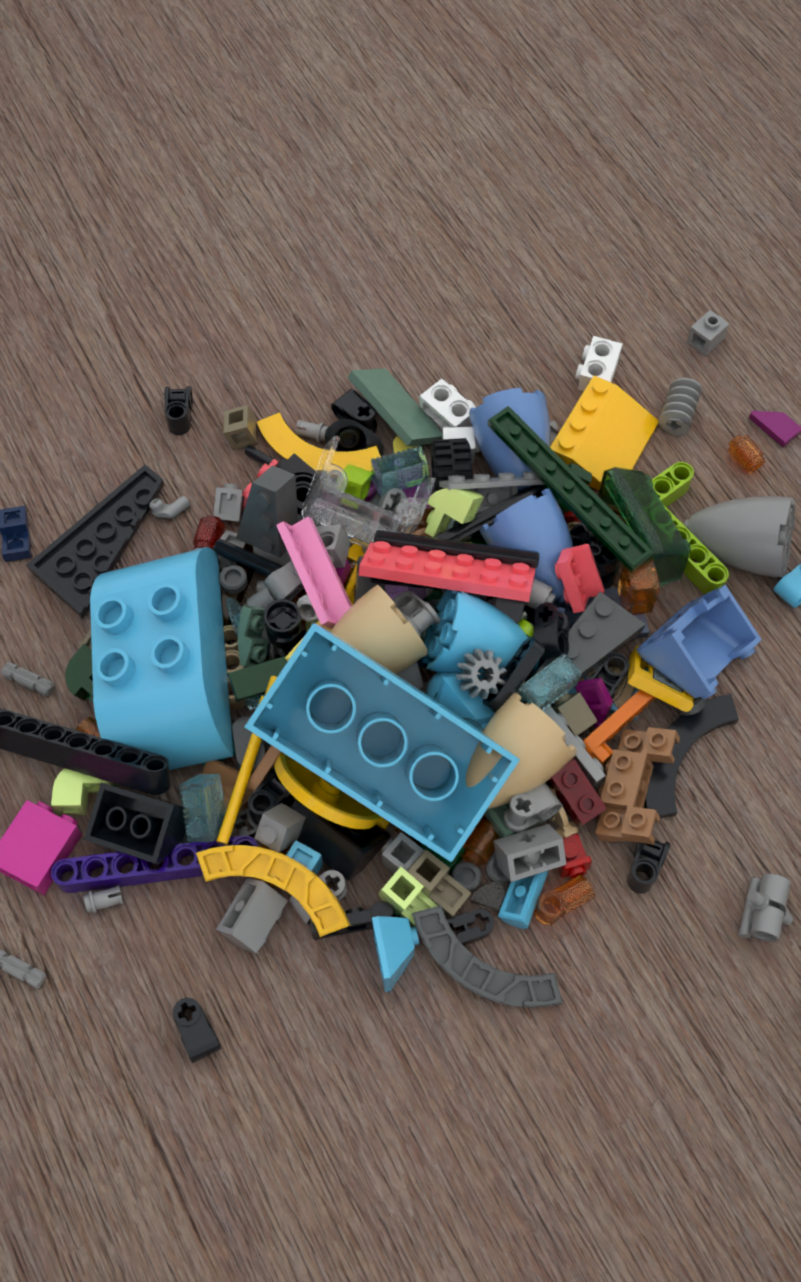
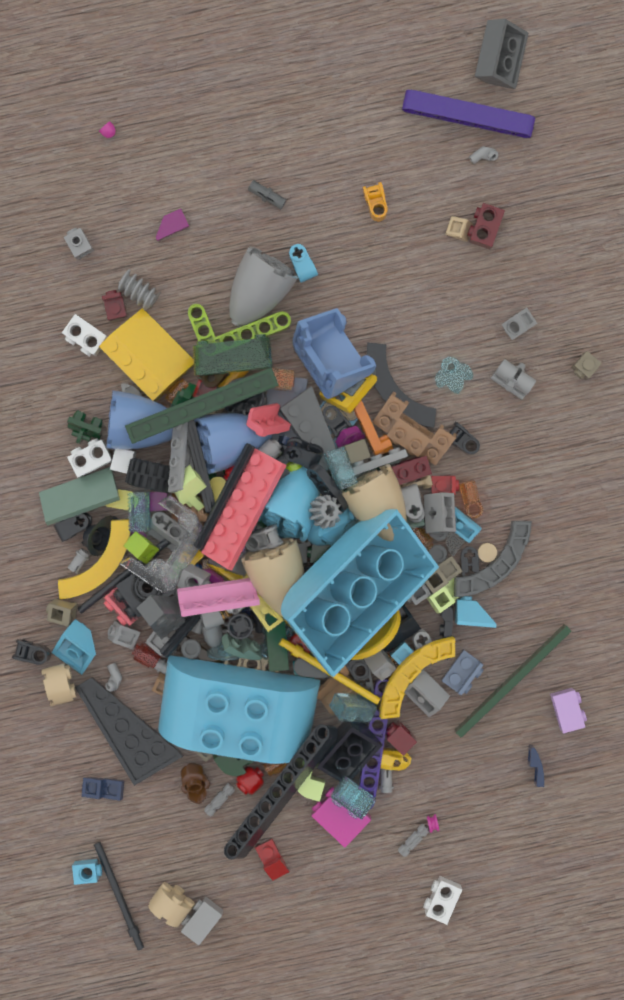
camera: 75 degrees left, 25 degrees up
(46, 636) = (194, 782): none -> reddish brown head
(49, 988) = (433, 823): none -> dark pink bush
(63, 708) = (250, 781): none -> red head
(65, 845) = (352, 798): none -> clear light blue brick
(138, 900) = (394, 760): none -> yellow rock
(143, 441) = (58, 684): none -> tan brick
(174, 893) = (400, 737): none -> dark red brick
(185, 1123) = (535, 761): none -> dark blue slope
(196, 1034) = (486, 742): black piece -> none
(200, 449) = (76, 647): none -> medium azure slope
(281, 1152) = (567, 710): none -> lavender brick
(297, 966) = (463, 672): none -> sand blue bracket
(307, 1048) = (512, 680): none -> dark green tile
(484, 386) = (83, 430): none -> dark green hips
(492, 949) = (487, 552): none -> tan tile
(650, 389) = (114, 305): none -> dark red bracket
(730, 824) = (455, 377): none -> clear light blue plate
(746, 453) = (190, 257): clear orange brick -> none

